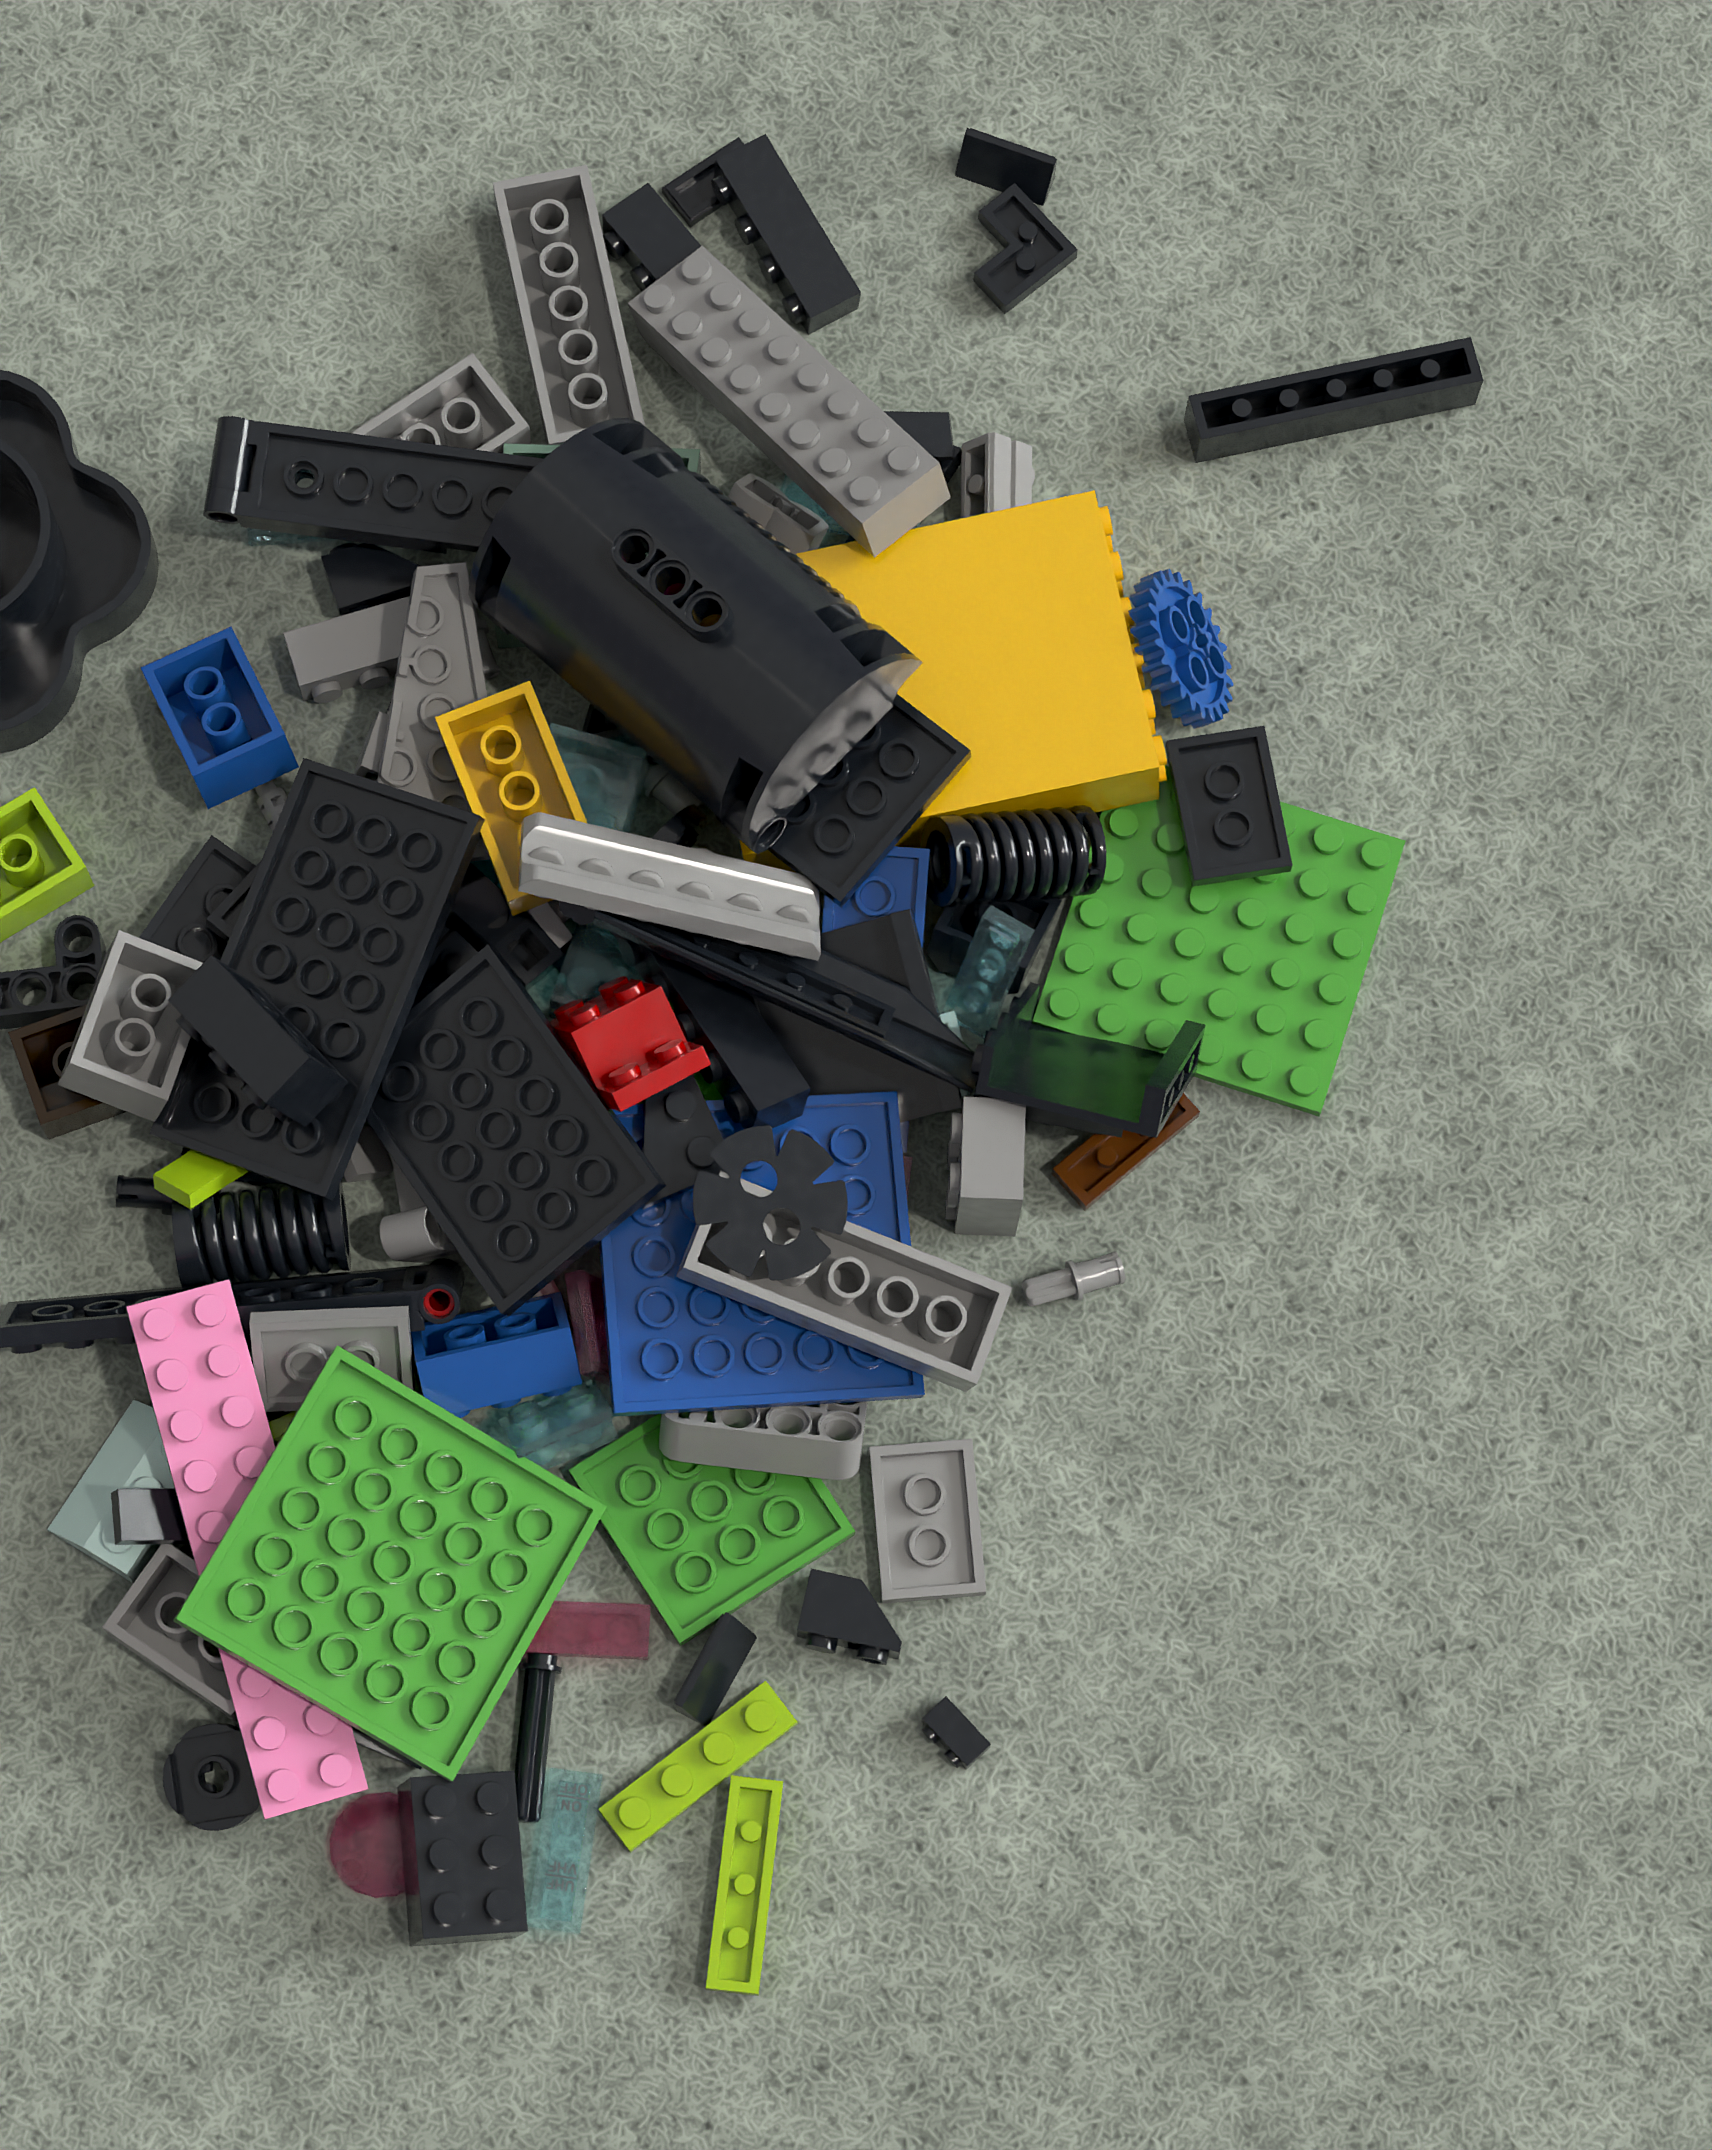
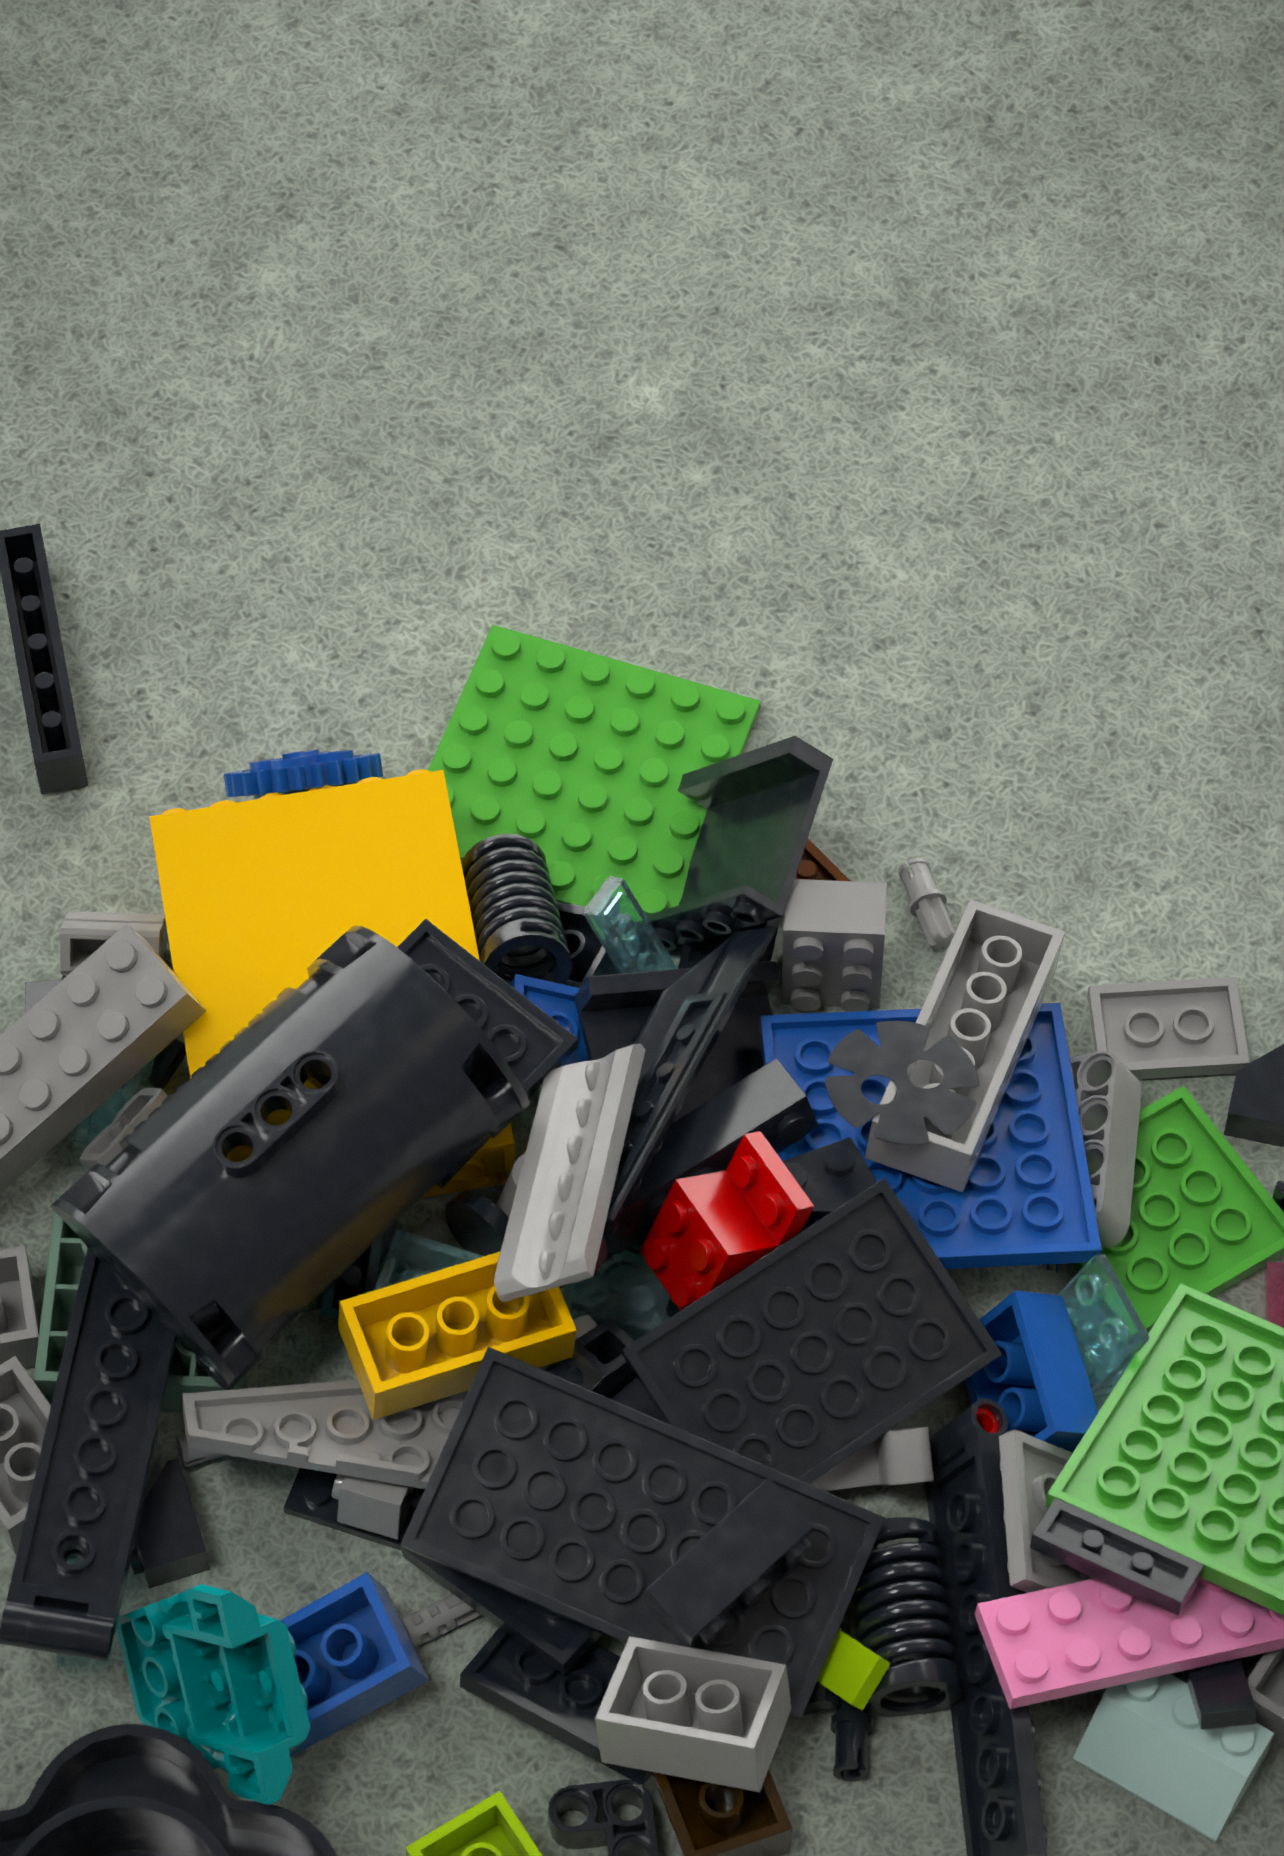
camera: 85 degrees left, 15 degrees down
(174, 622) = (220, 1682): none -> teal wedge
(268, 1408) = (1116, 1556): none -> black plate
(347, 651) = (247, 1532): light grey brick -> none
(588, 1323) = (988, 1294): clear pink tile -> none
(1228, 806) = (477, 745): black plate -> none

